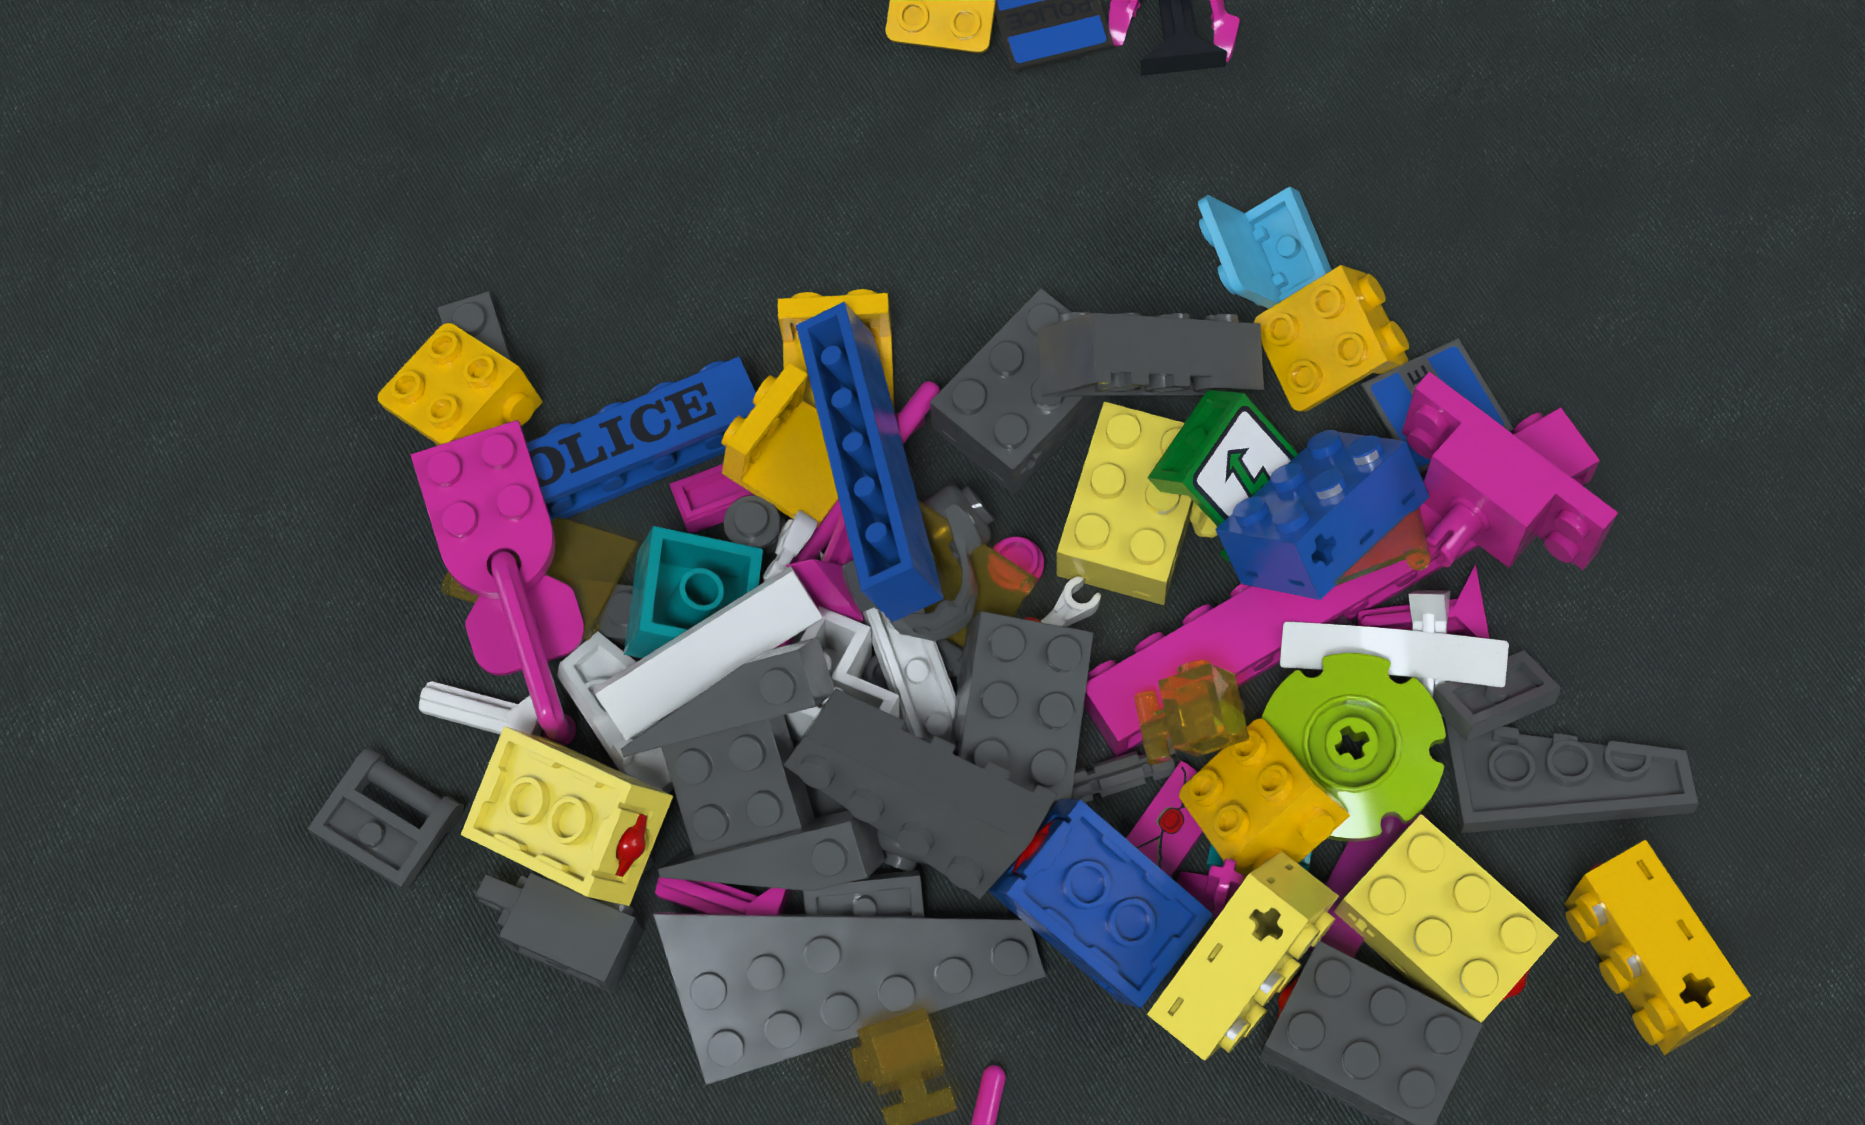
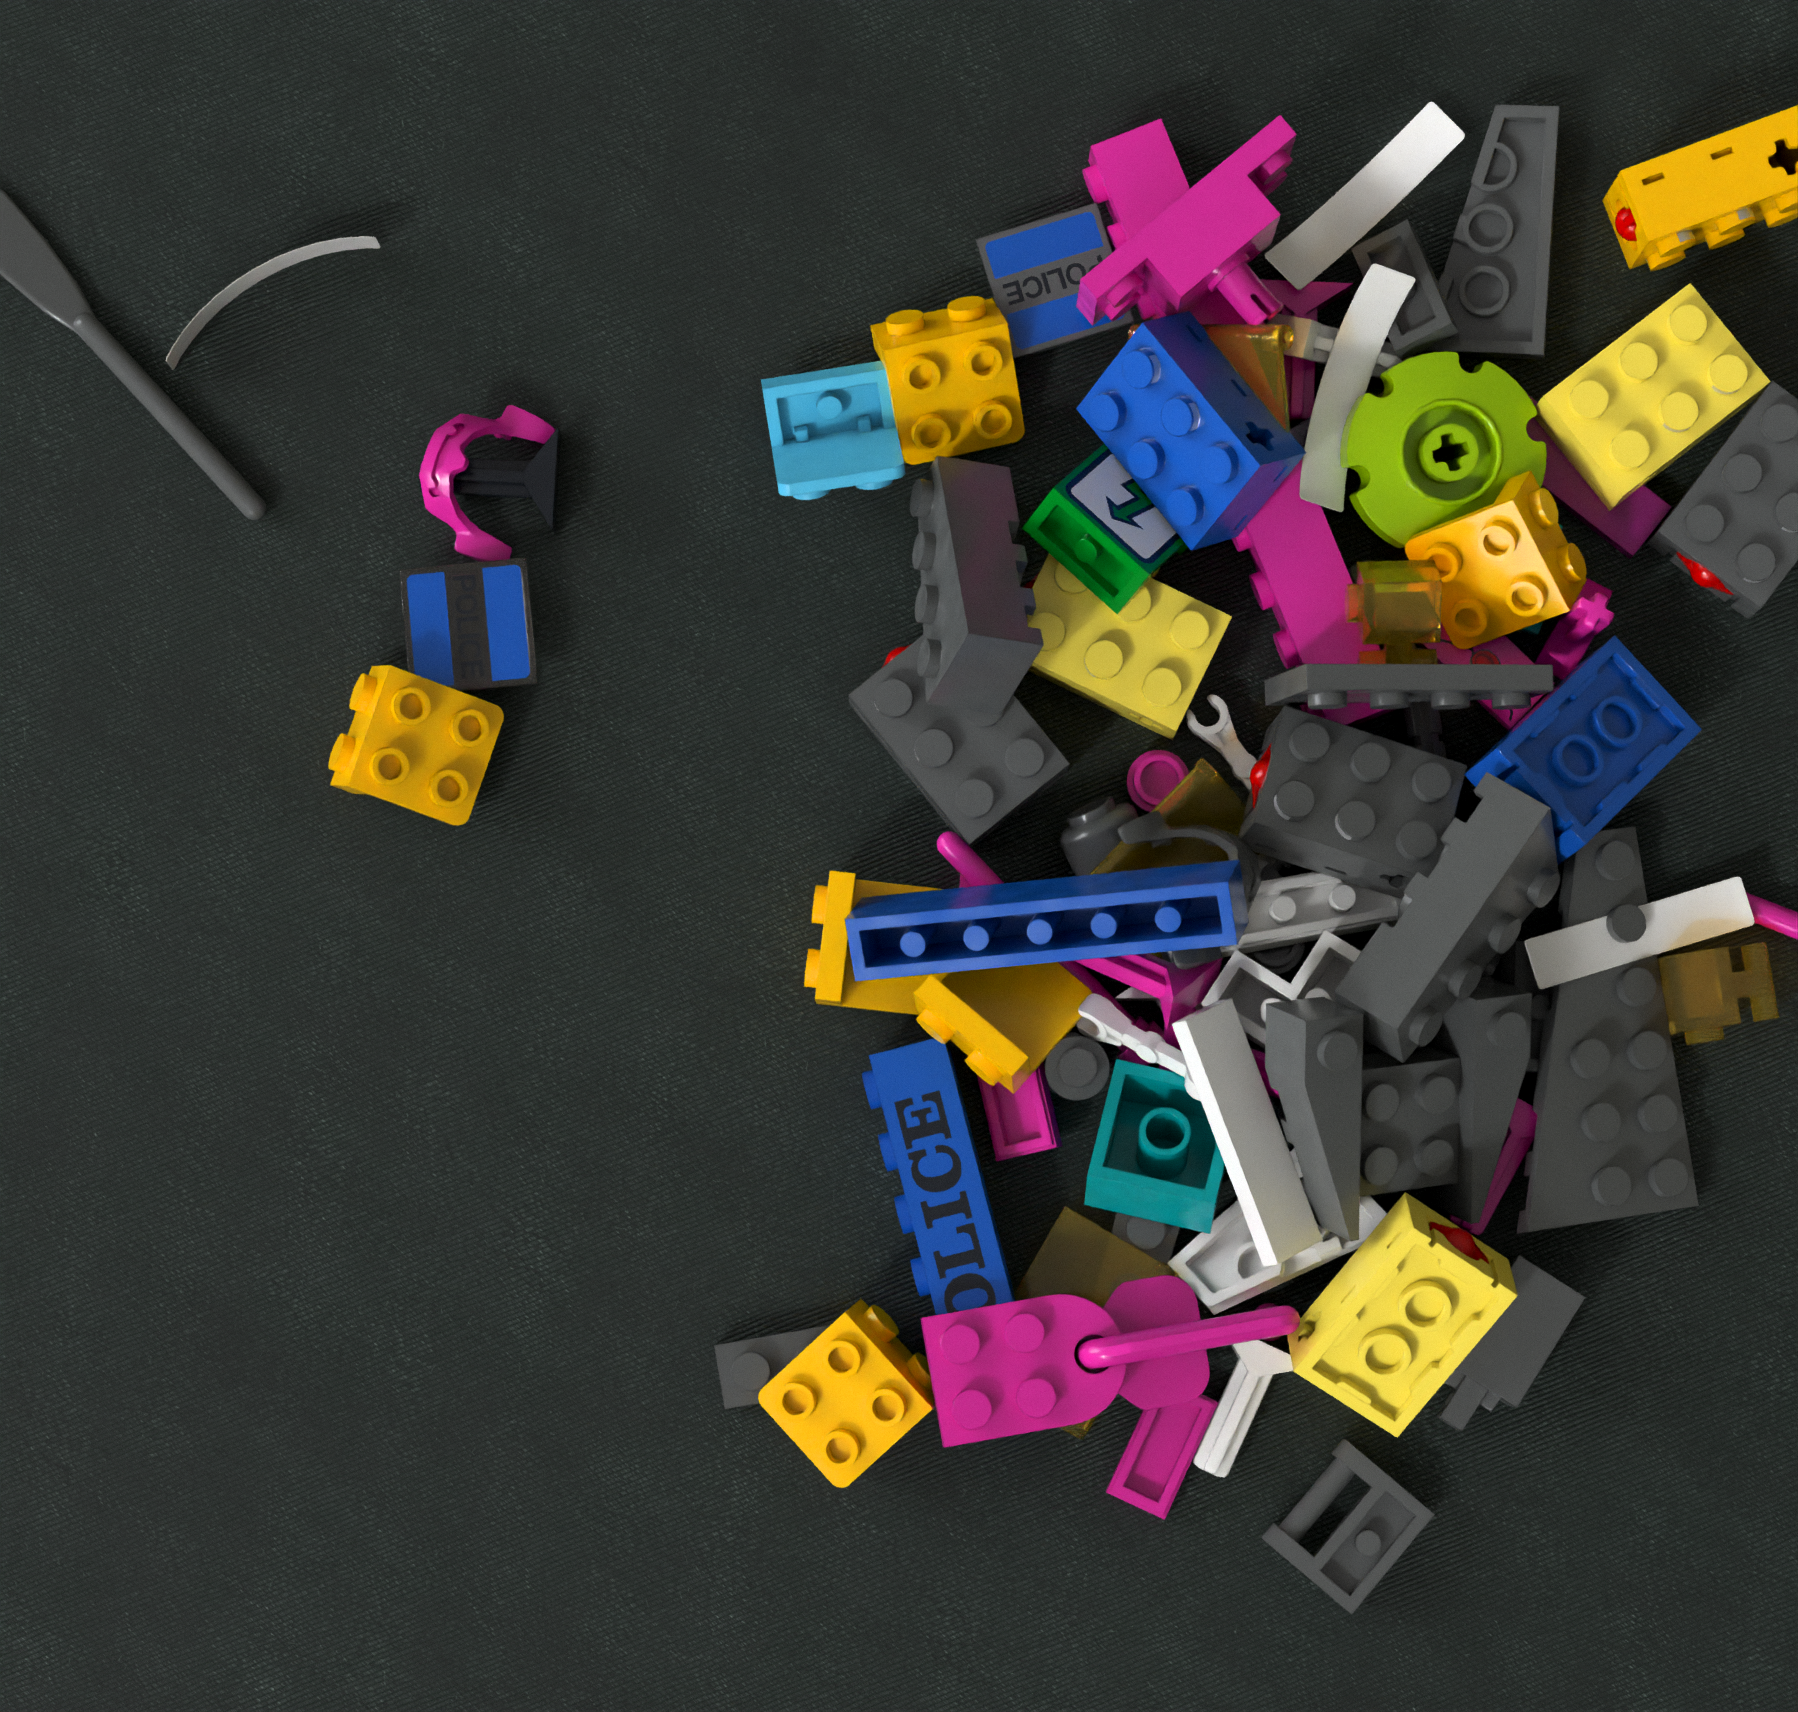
camera: 85 degrees left, 15 degrees up
(433, 654) = (1160, 1454): none -> dark pink tile
(956, 1015) = (1669, 925): none -> white sticker
(1124, 708) = (1398, 684): none -> dark grey wing
(1245, 957) = (1675, 608): light yellow piece -> none
(1569, 657) = (1366, 197): none -> white sticker

